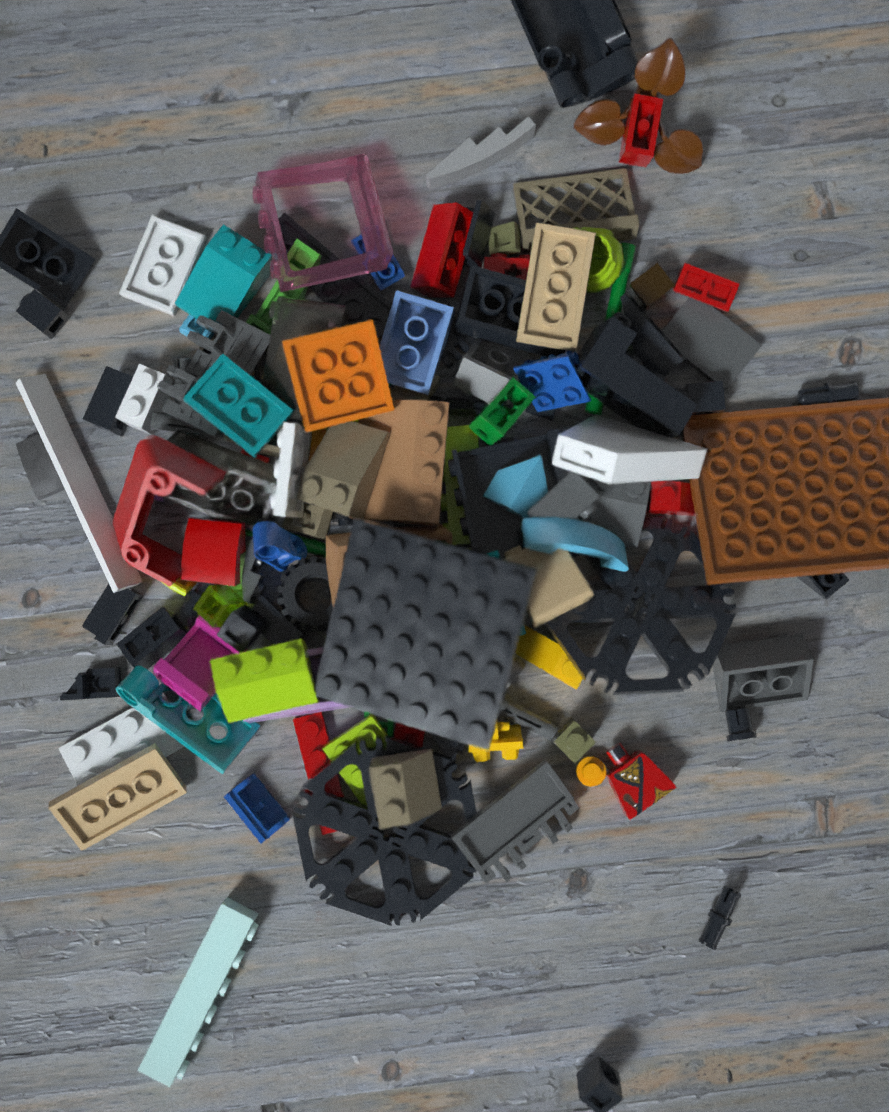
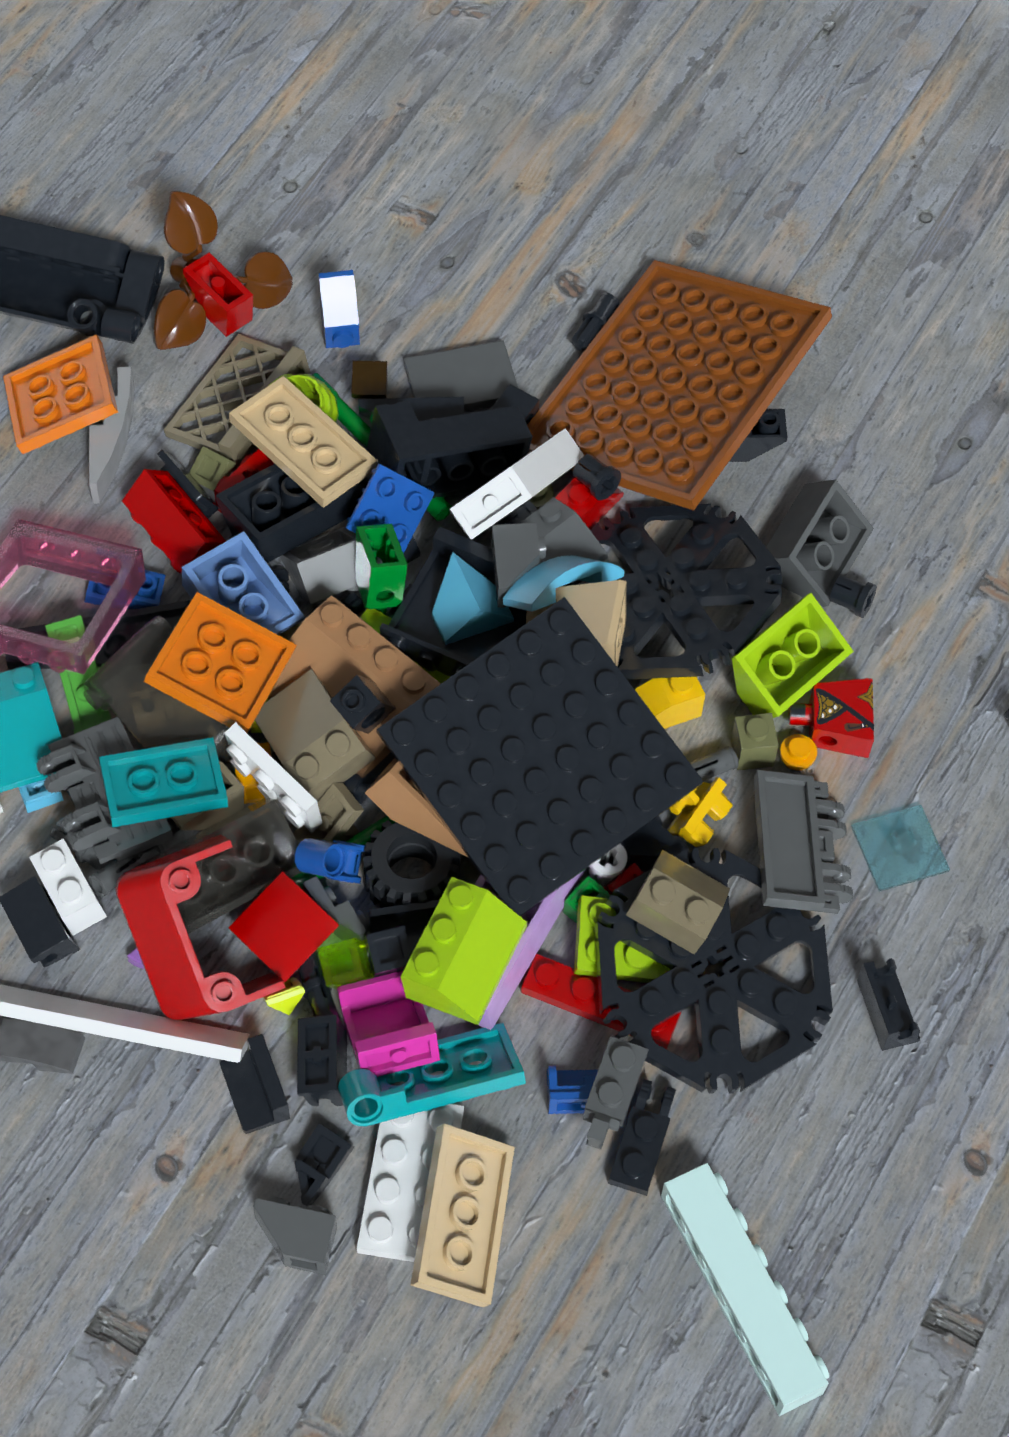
camera: 60 degrees left, 25 degrees down
(38, 708) = (297, 1234): none -> dark grey slope
(249, 863) = (641, 1142): none -> black hinge
(254, 832) = (613, 1089): none -> dark grey hinge
(380, 487) = (362, 704): none -> black brick
(450, 952) = (887, 1005): none -> black hinge
(478, 98) = (59, 394): none -> orange plate
(573, 882) = (900, 848): none -> clear light blue piece
(646, 727) = (788, 658): none -> lime slope
(685, 498) = (601, 479): none -> black bush
(692, 220) = (339, 309): none -> slope
(706, 287) = (409, 341): red hinge -> none

